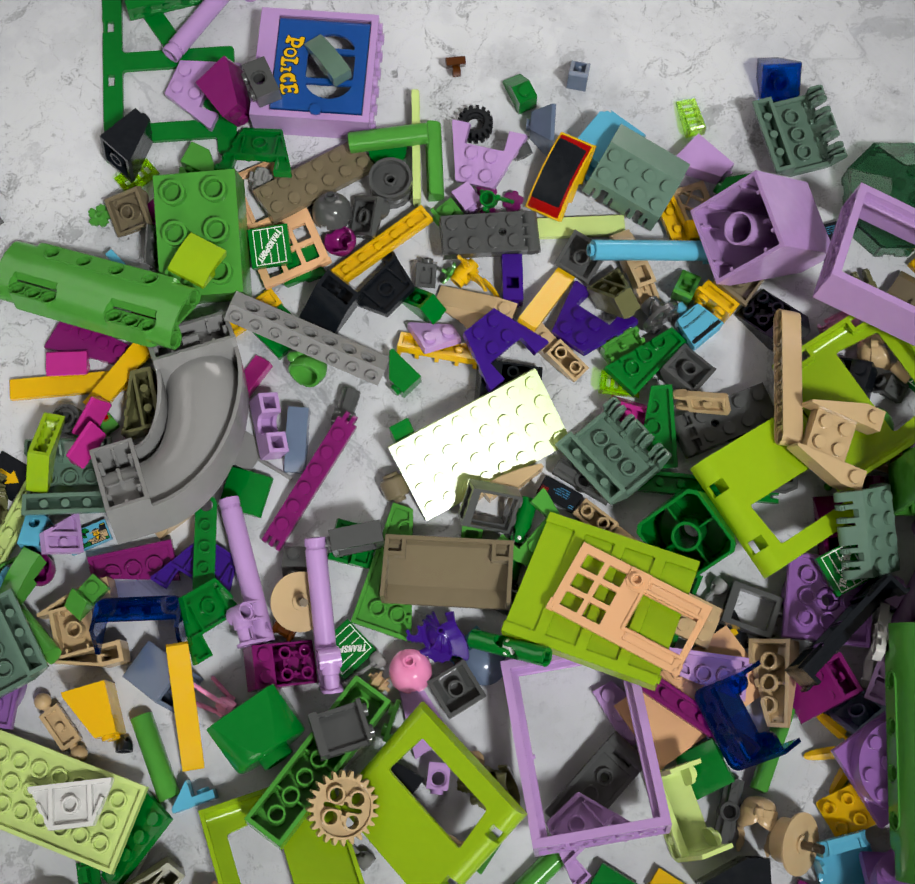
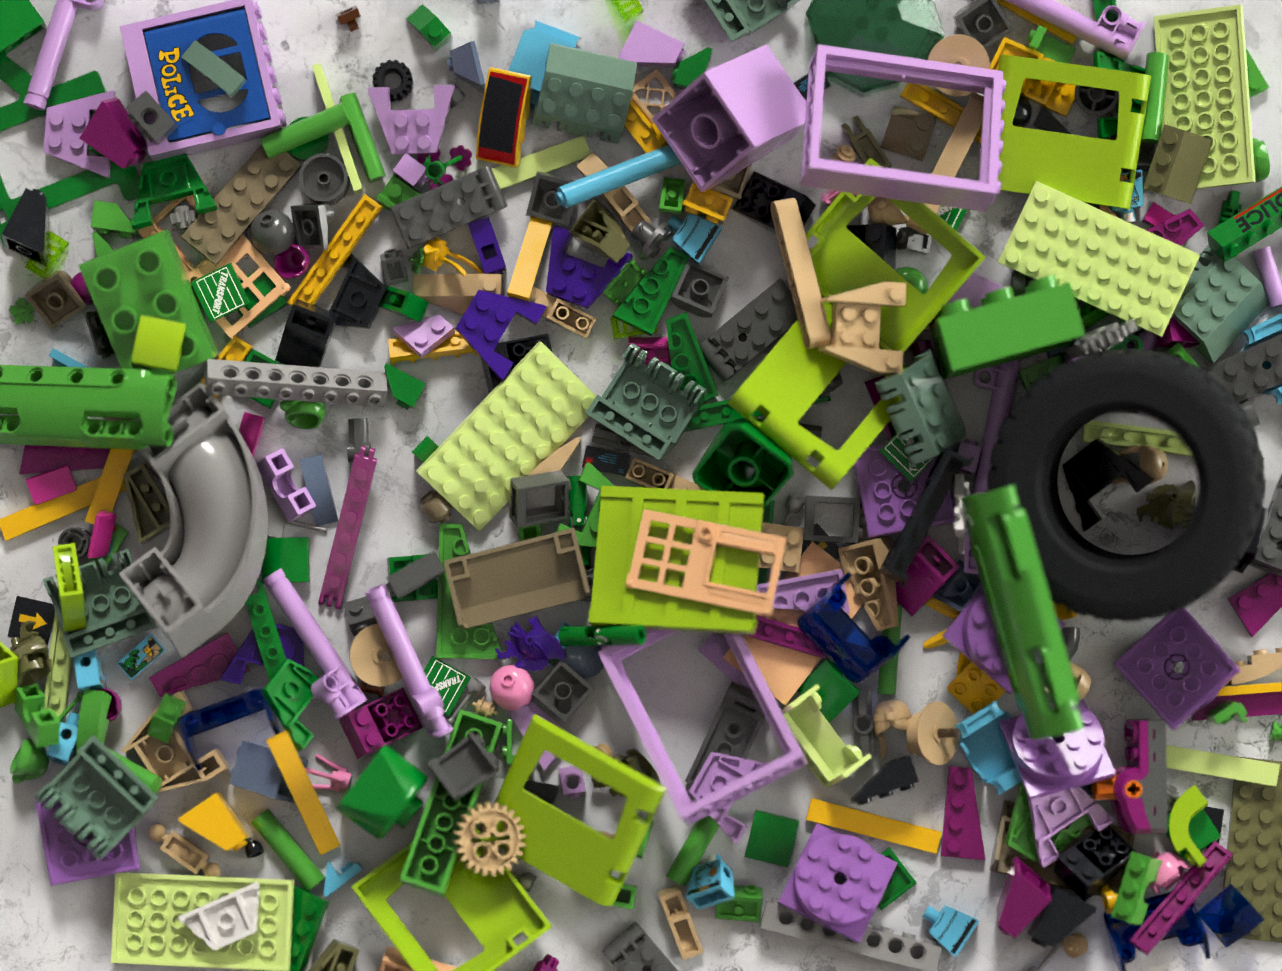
camera: 20 degrees left, 10 degrees up
(63, 537) = (118, 666): lavender wing -> none
(89, 438) = (109, 567): dark pink slope -> none
(702, 402) = (722, 322): tan hinge -> none

